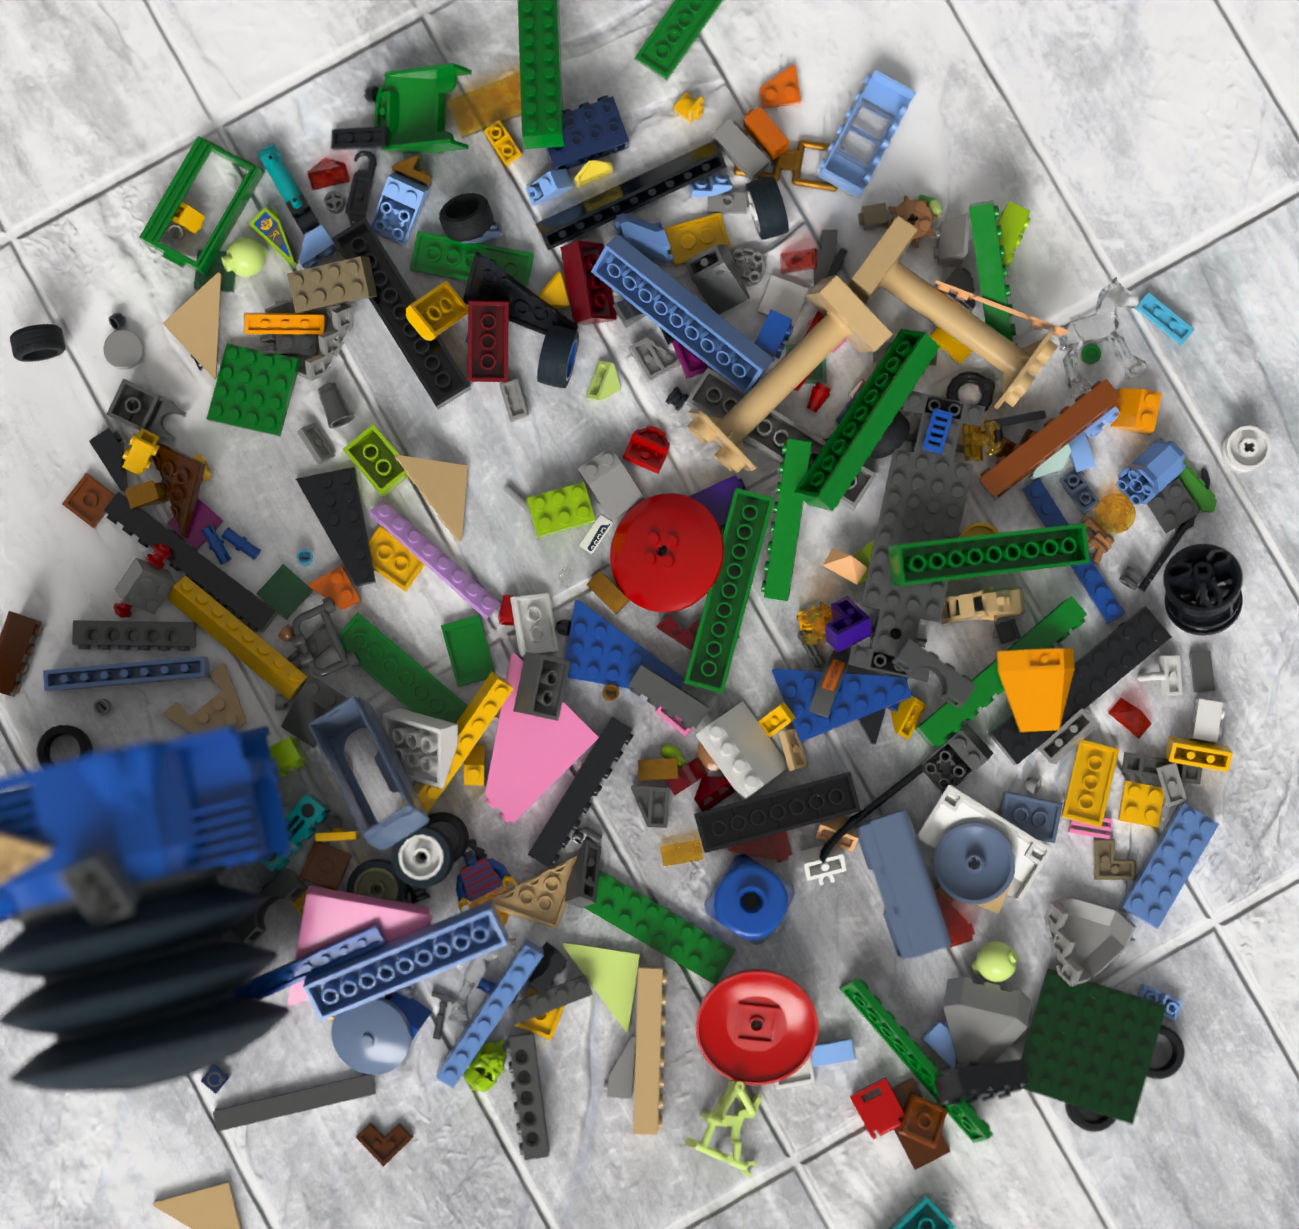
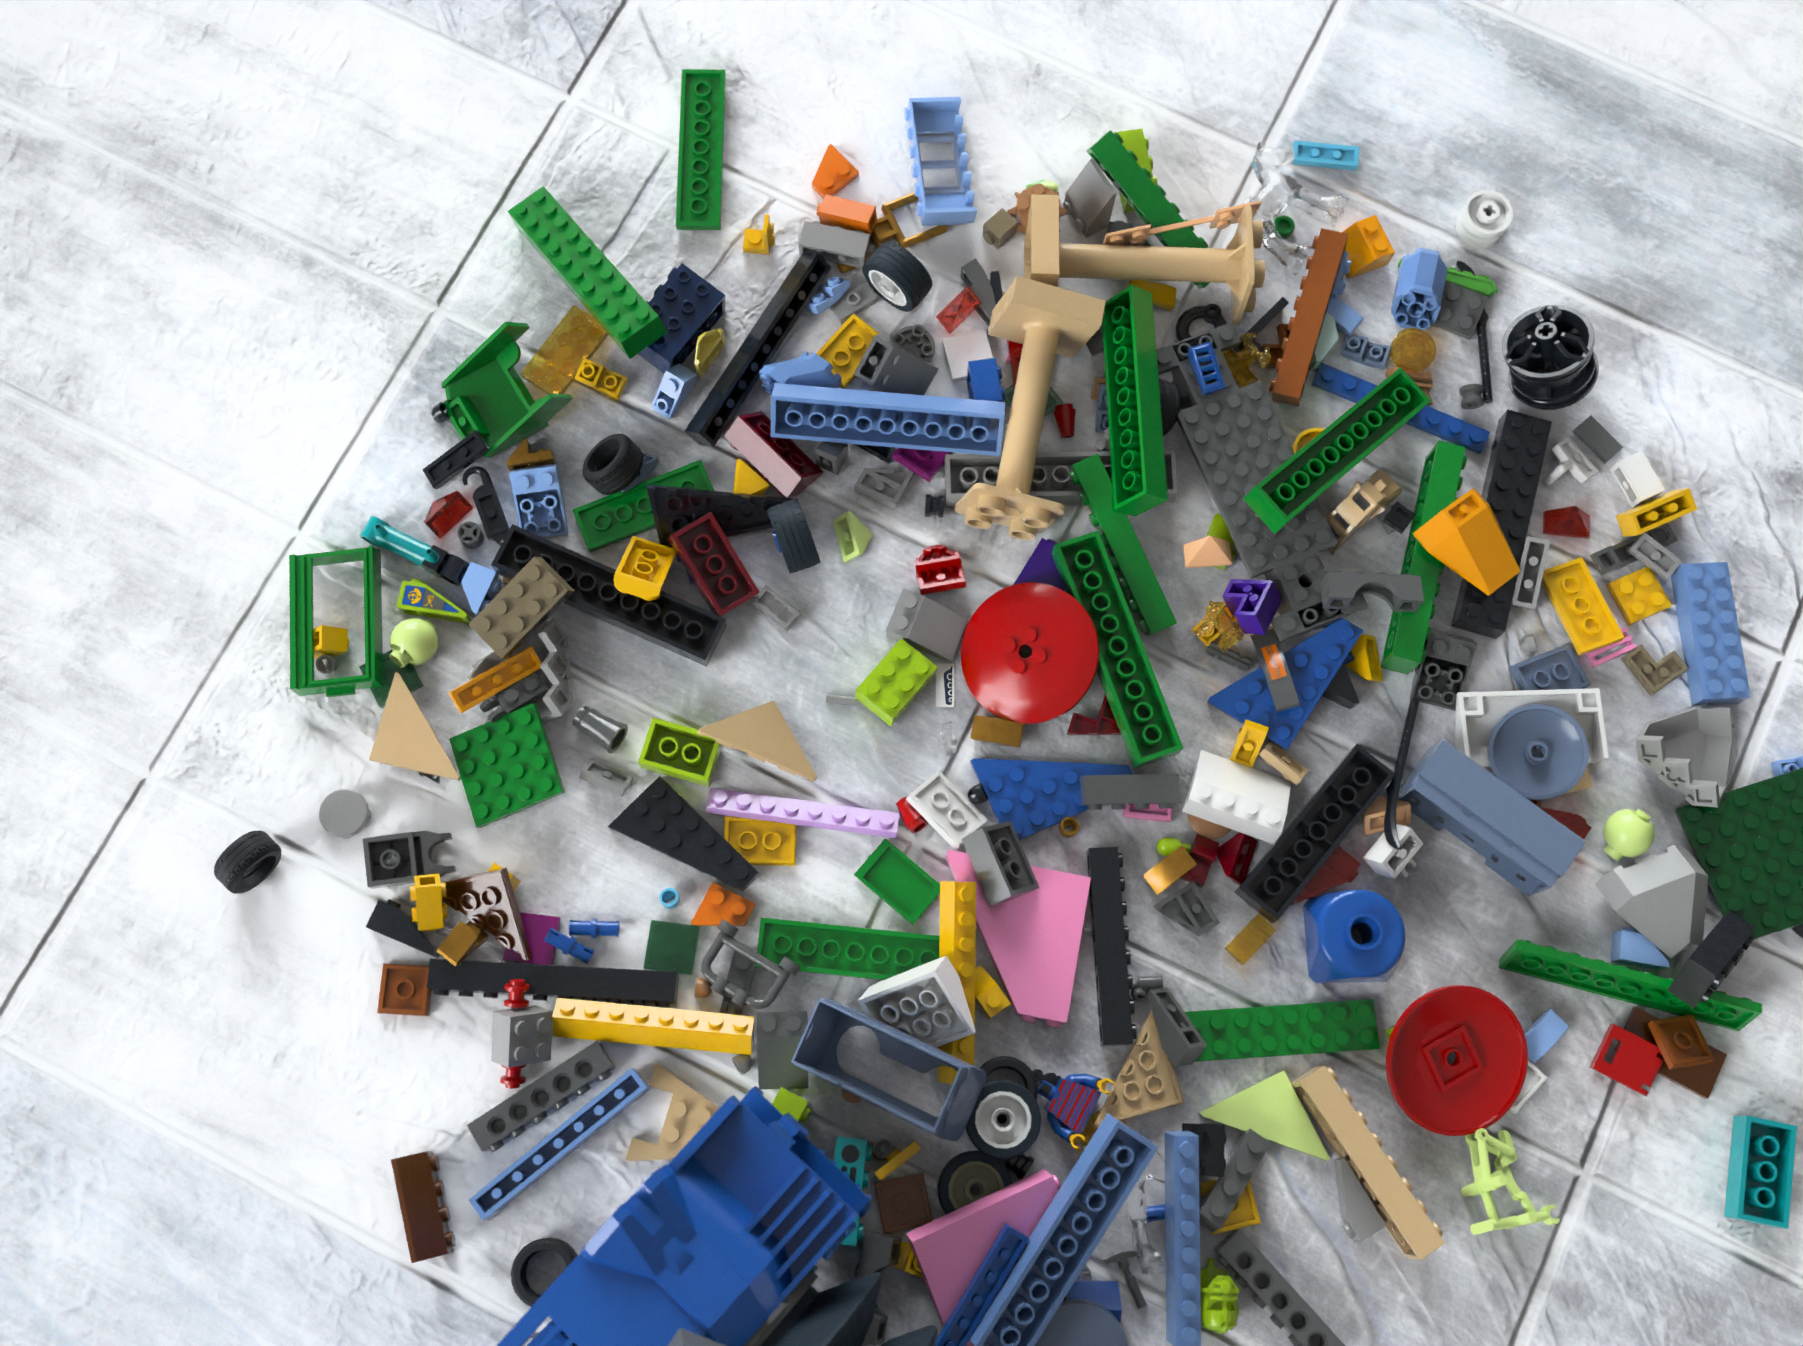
camera: 40 degrees left, 10 degrees down
(100, 709) = (556, 1201): light grey hinge -> none
(117, 321) = (319, 789): black hinge -> none

